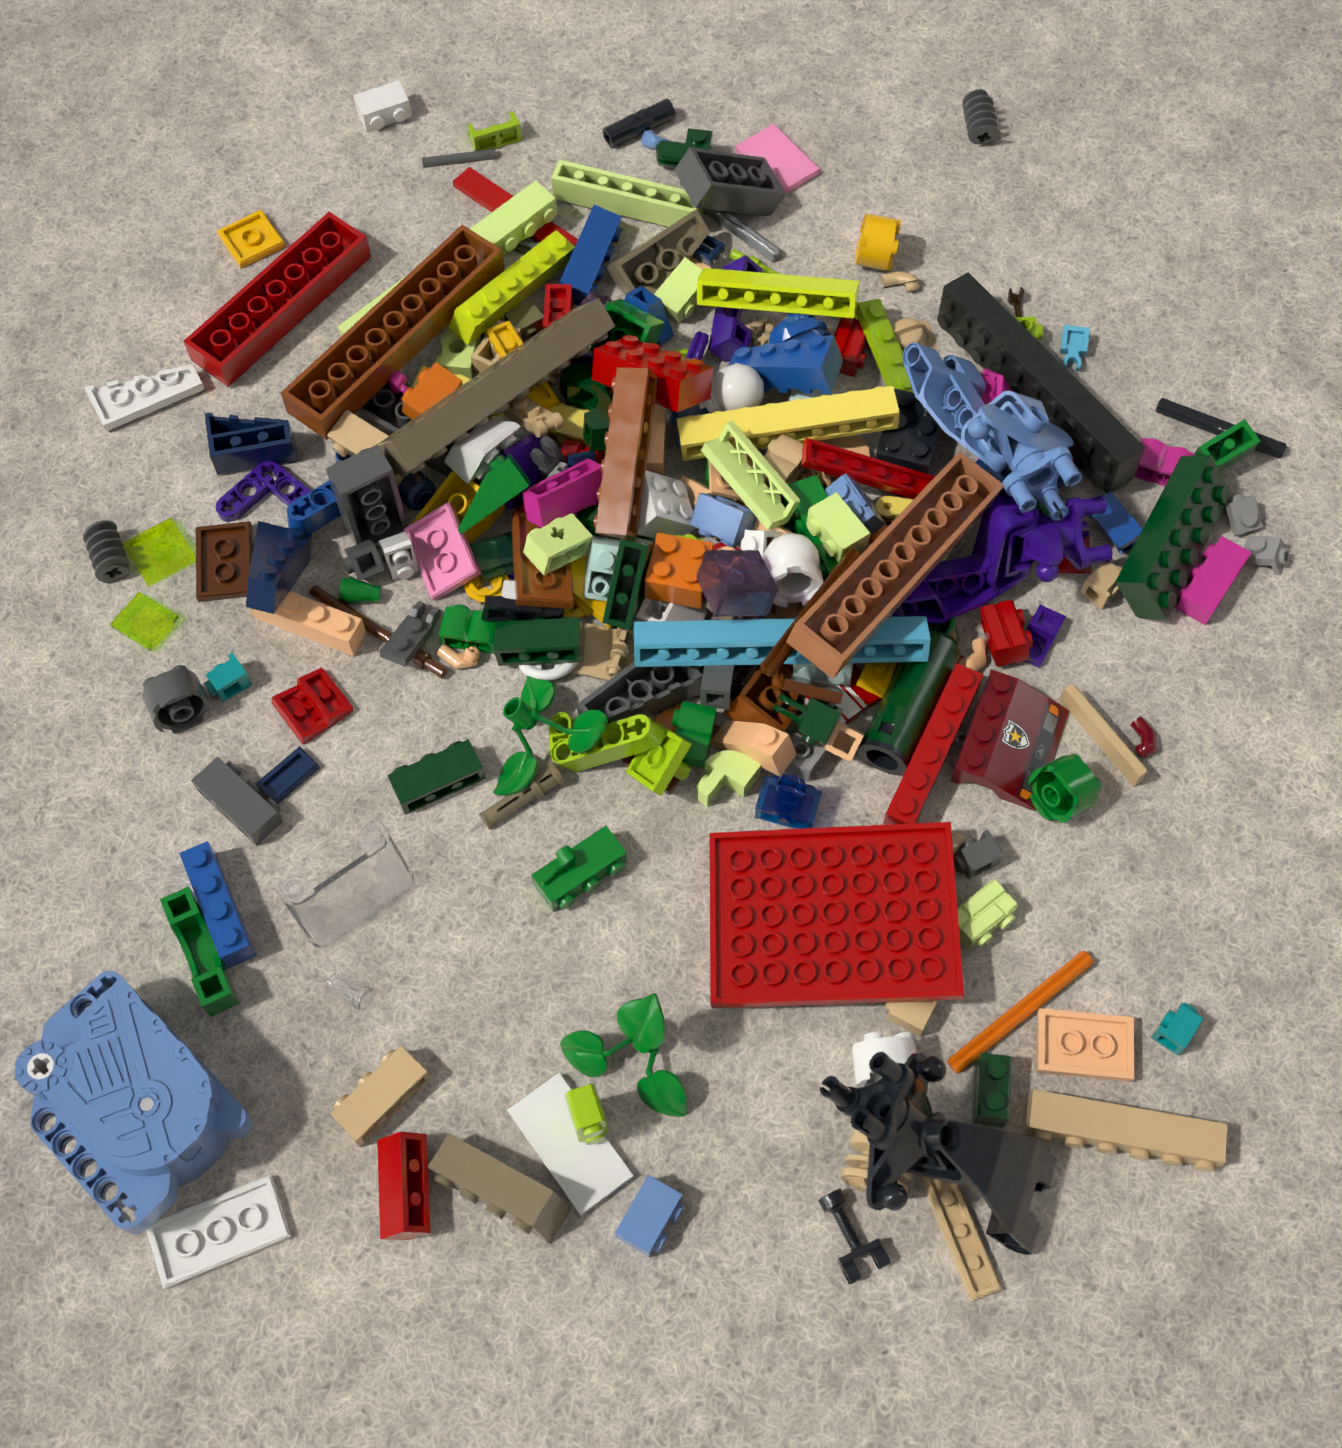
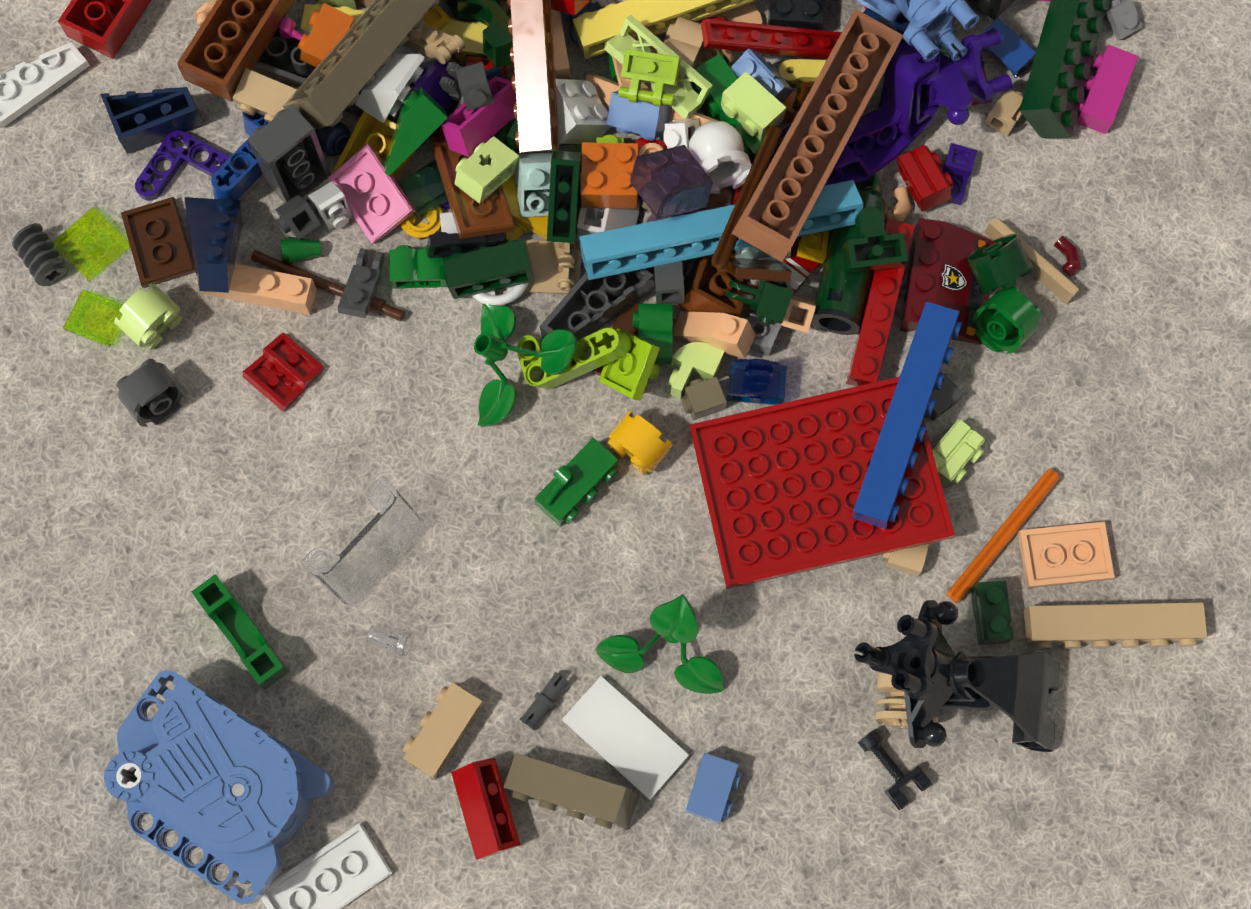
camera: 15 degrees left, 10 degrees up
(193, 626) = (148, 316): none -> yellowish green brick
(217, 904) = (244, 583): blue brick -> none
(227, 679) = (194, 362): teal brick -> none
(238, 800) = (237, 479): dark grey brick -> none
(287, 775) = (277, 445): dark blue tile -> none
(436, 776) = (420, 419): dark green brick -> none
(459, 660) = (415, 299): light nougat arm -> none
(494, 1087) = (544, 701): none -> dark grey pin
(536, 789) = (482, 448): dark tan pin -> none
(563, 461) = (474, 86): none -> dark grey brick
(587, 1114) = (639, 711): lime brick -> none
(652, 839) = (639, 442): none -> yellow brick
(730, 809) = (703, 398): none -> dark tan brick
(741, 473) = (650, 68): none -> lime plate
(896, 1047) = (888, 605): white brick -> none
(932, 685) = (873, 247): none -> dark green brick
(934, 863) = (905, 416): none -> blue brick
(962, 1238) = (991, 752): tan tile -> none
(1067, 730) = (1000, 263): none -> dark green brick
(1177, 1028) = (1145, 523): teal brick -> none
(1267, 551) = (1151, 51): light grey bracket -> none

